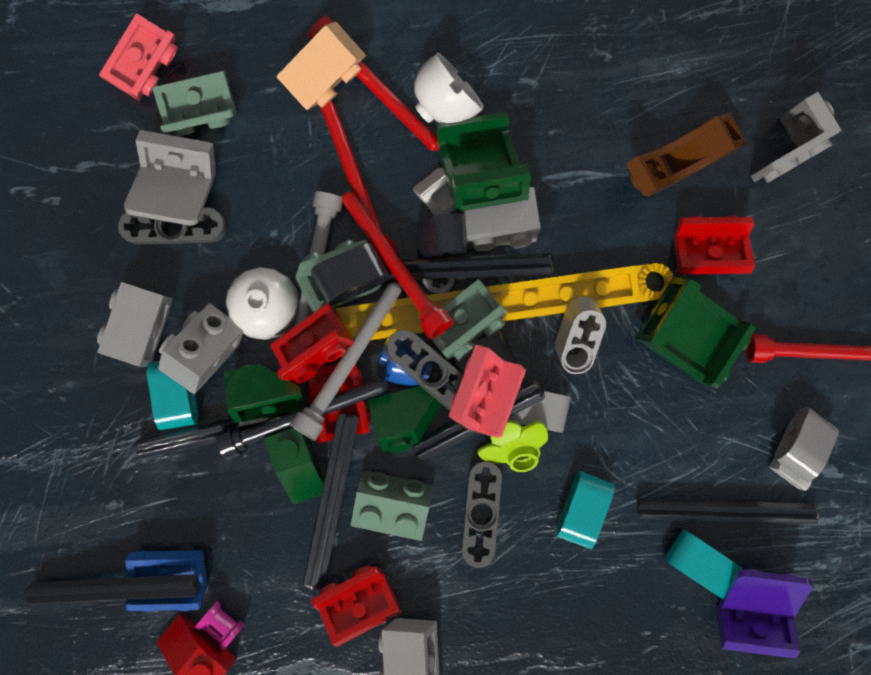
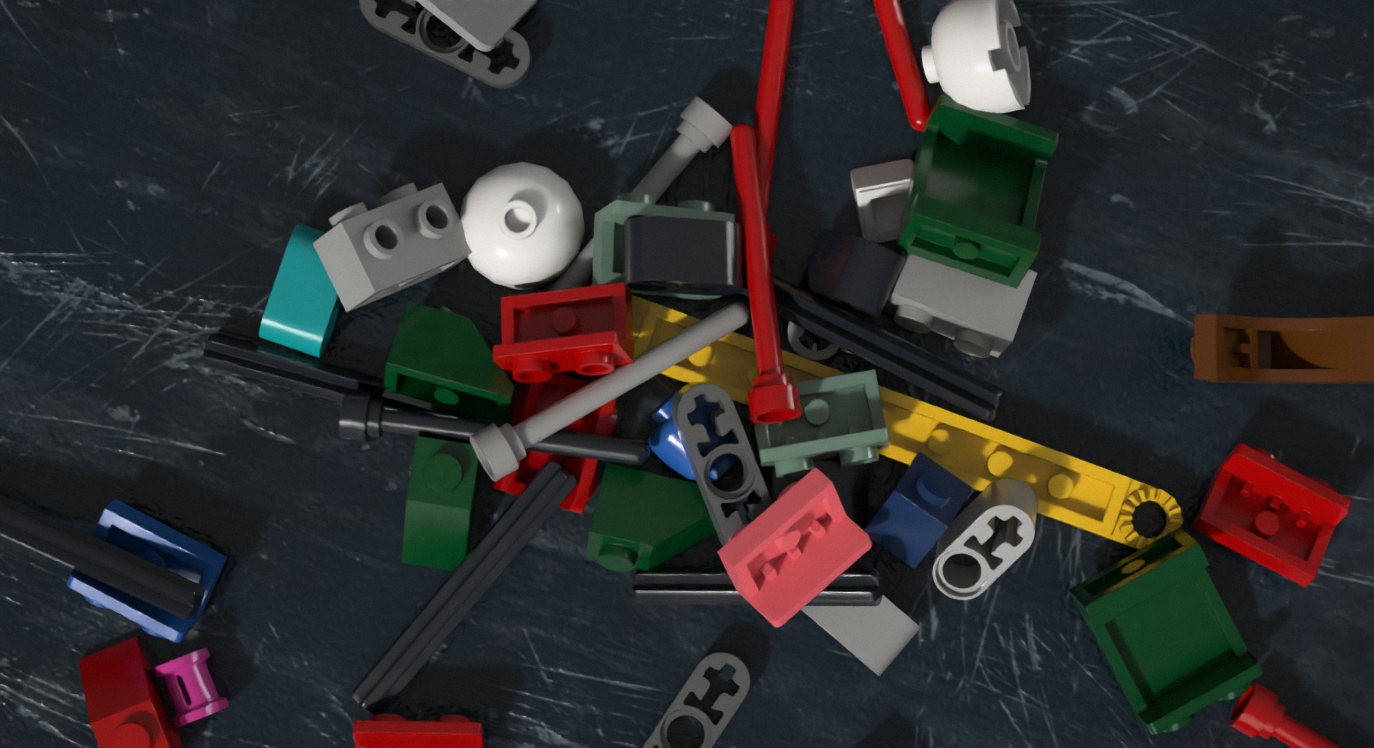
camera: 30 degrees right, 0 degrees up
(133, 325) = (307, 153): light grey brick -> none
(392, 505) = (554, 645): sand green bracket -> none
(517, 446) = (795, 657): lime plate -> none
(537, 339) = (917, 510): none -> dark blue brick

